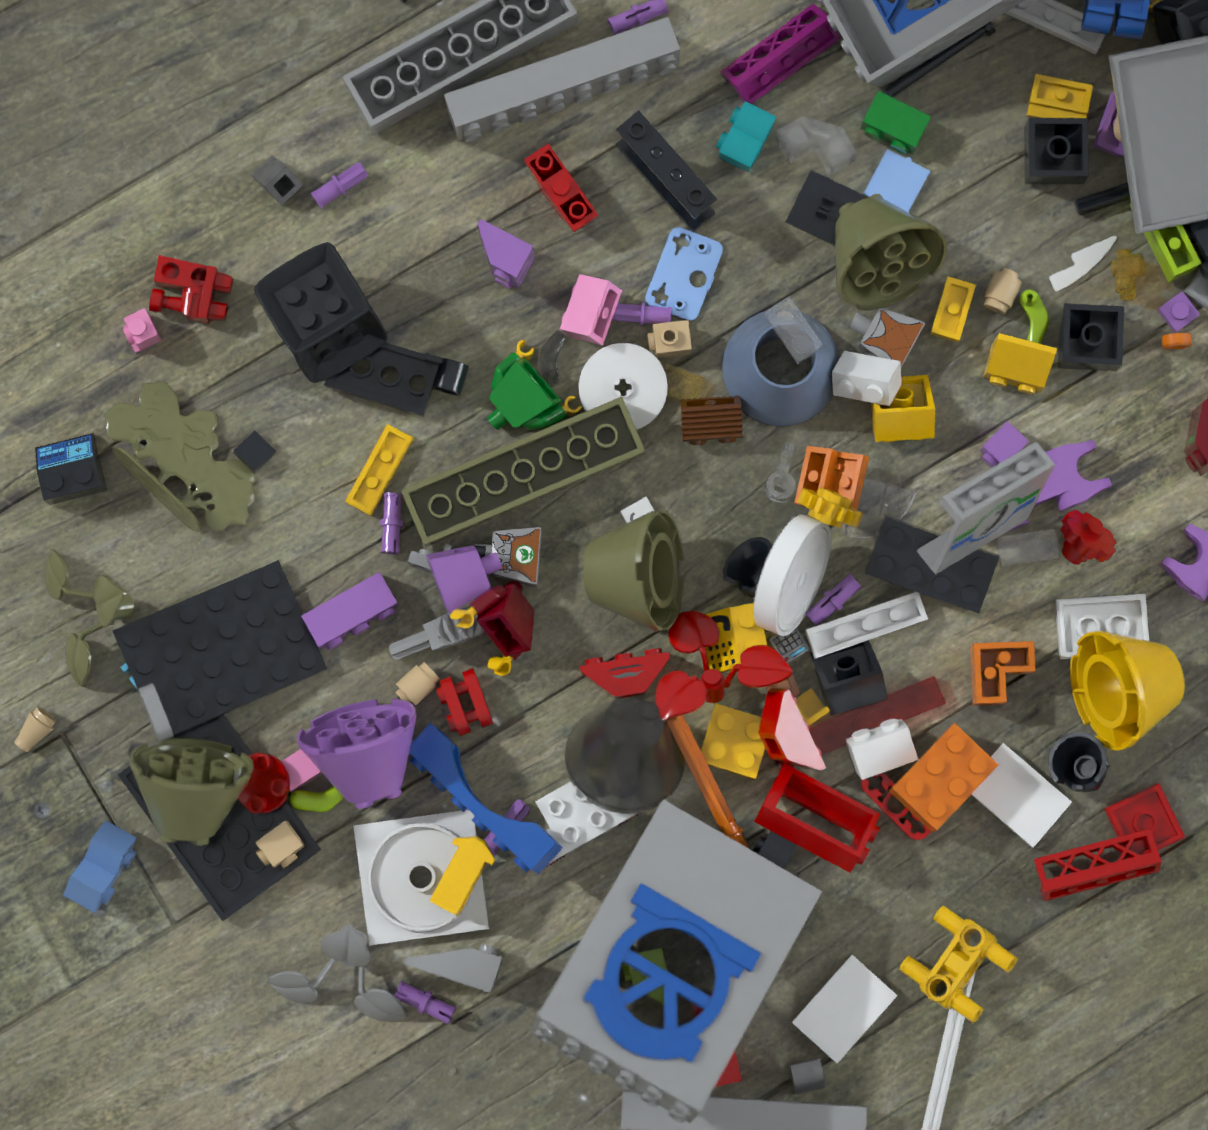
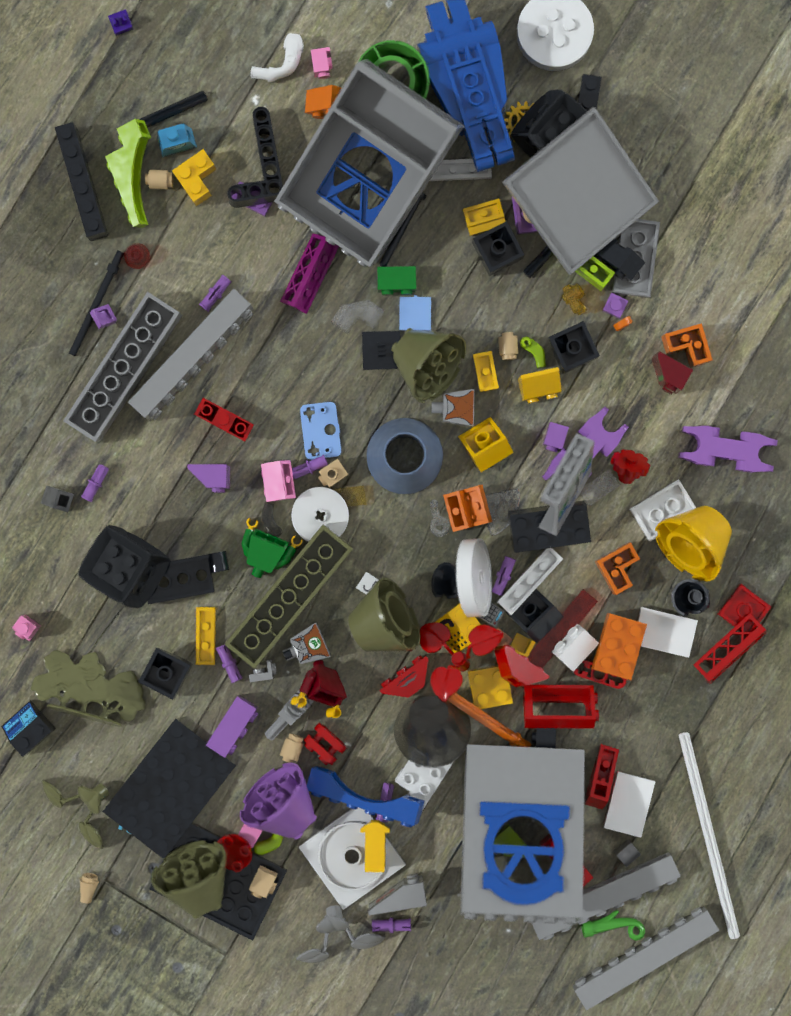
camera: 25 degrees left, 5 degrees up
(104, 861) = (167, 949): medium blue brick -> none
(155, 712) = (152, 847): light grey beam -> none
(198, 288) = (46, 586): red hips -> none
(254, 452) = (128, 663): black tile -> none
(299, 489) = (165, 673): none -> black slope
(462, 574) = (285, 674): medium lavender torso -> none
(665, 171) = (279, 378): black fence -> none
(711, 419) = (380, 508): reddish brown brick -> none
(746, 136) = (315, 332): teal brick -> none
(793, 330) = (402, 437): clear plate -> none
(825, 950) = (602, 777): none -> red slope
(830, 507) = (476, 528): yellow gear -> none
(866, 378) = (457, 439): white brick -> none
(958, 964) = (681, 747): yellow piece -> none
(1083, 262) = (545, 303): white sticker -> none

